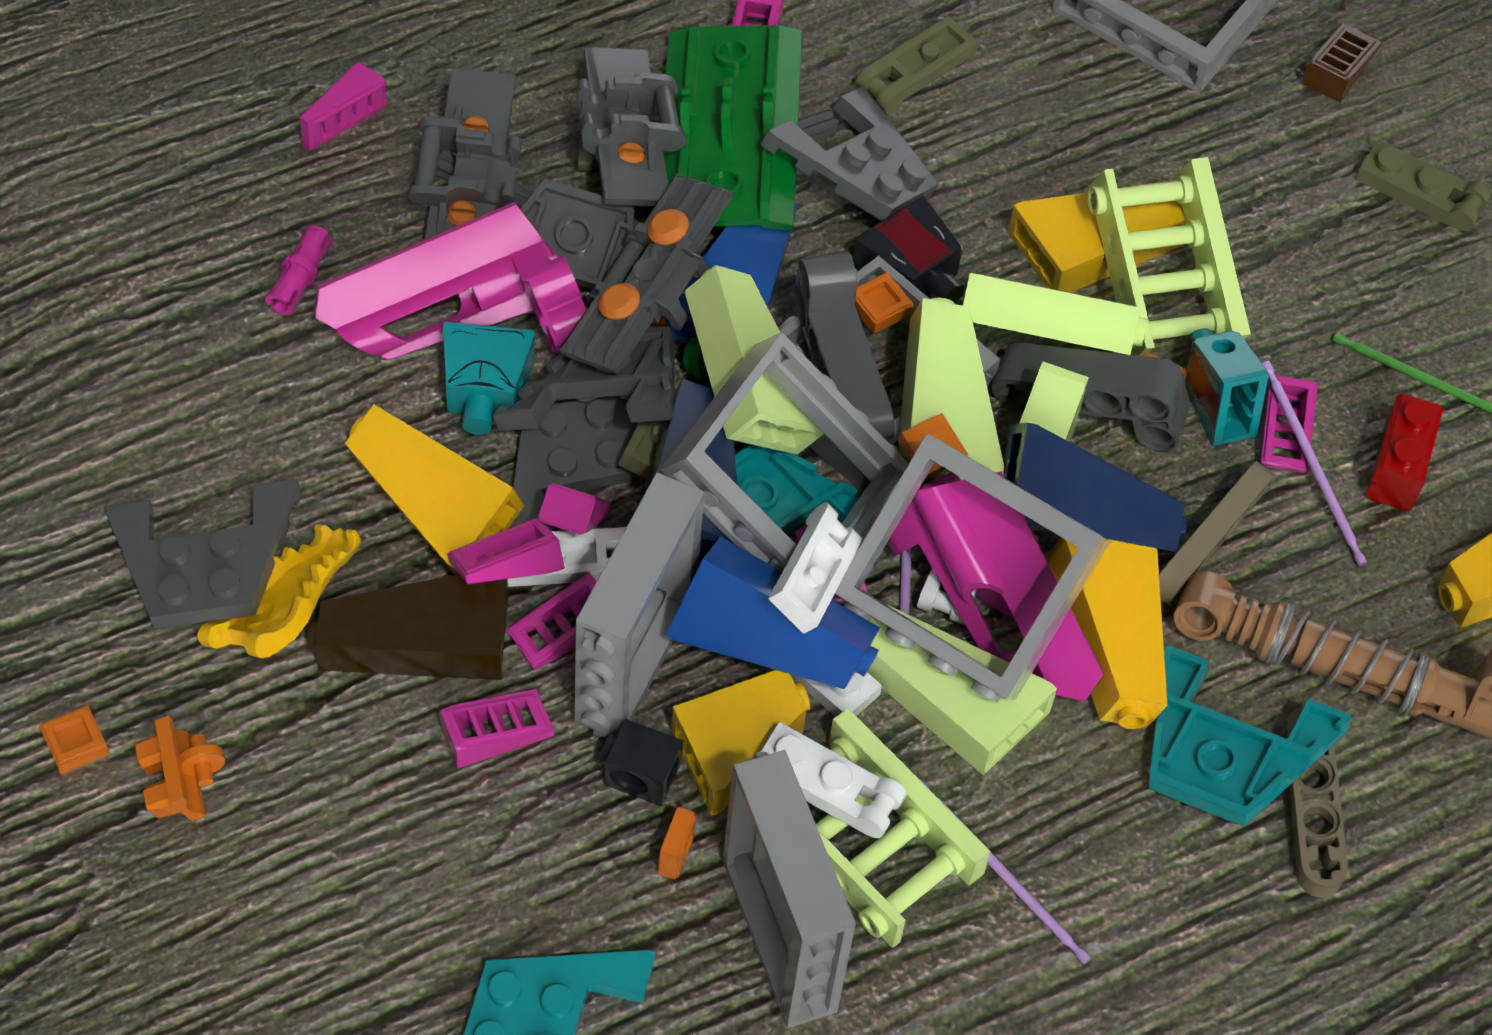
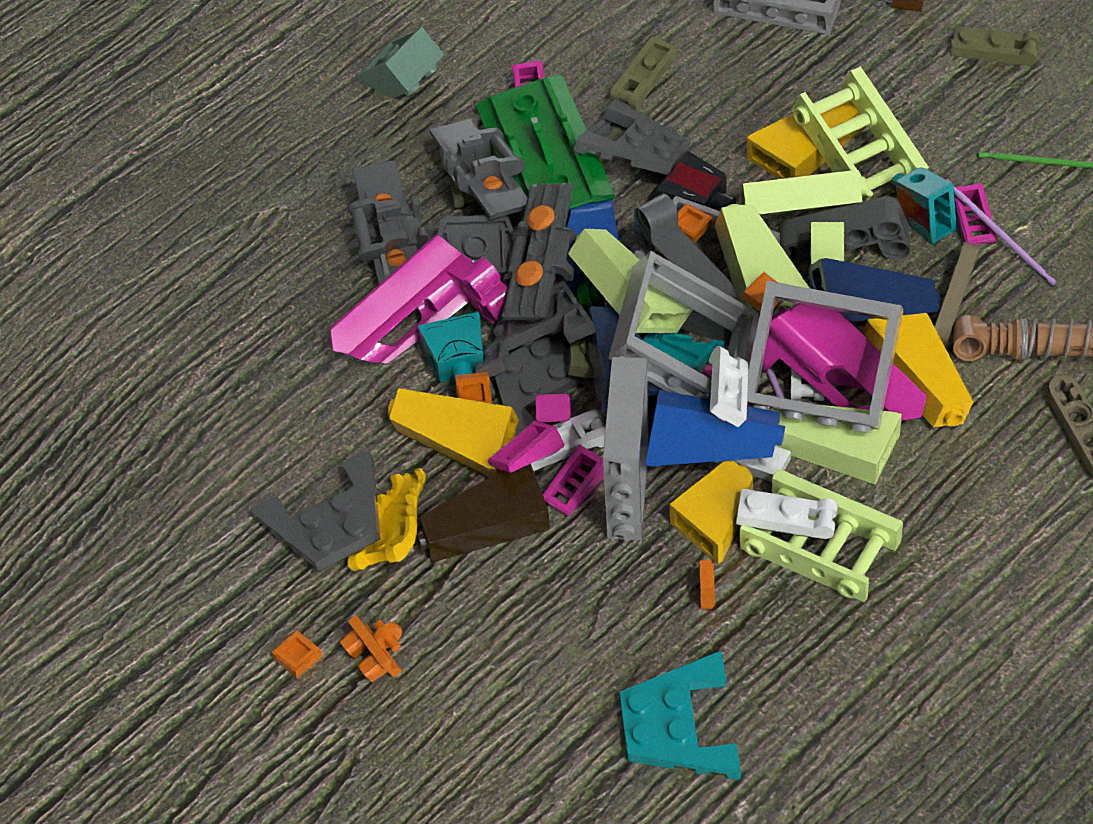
camera: 10 degrees left, 5 degrees down
(299, 270) = (305, 327): dark pink pin -> none
(345, 104) = (288, 215): dark pink slope -> none
(483, 440) = (474, 387): none -> orange tile
(483, 746) = (550, 575): dark pink slope -> none
(641, 762) = (662, 545): black brick -> none
(787, 888) = (817, 634): light grey window -> none
(1033, 904) = (943, 549): lavender piece -> none
(1226, 762) = (1021, 424): teal wing -> none
(1404, 452) = (1053, 207): red brick -> none

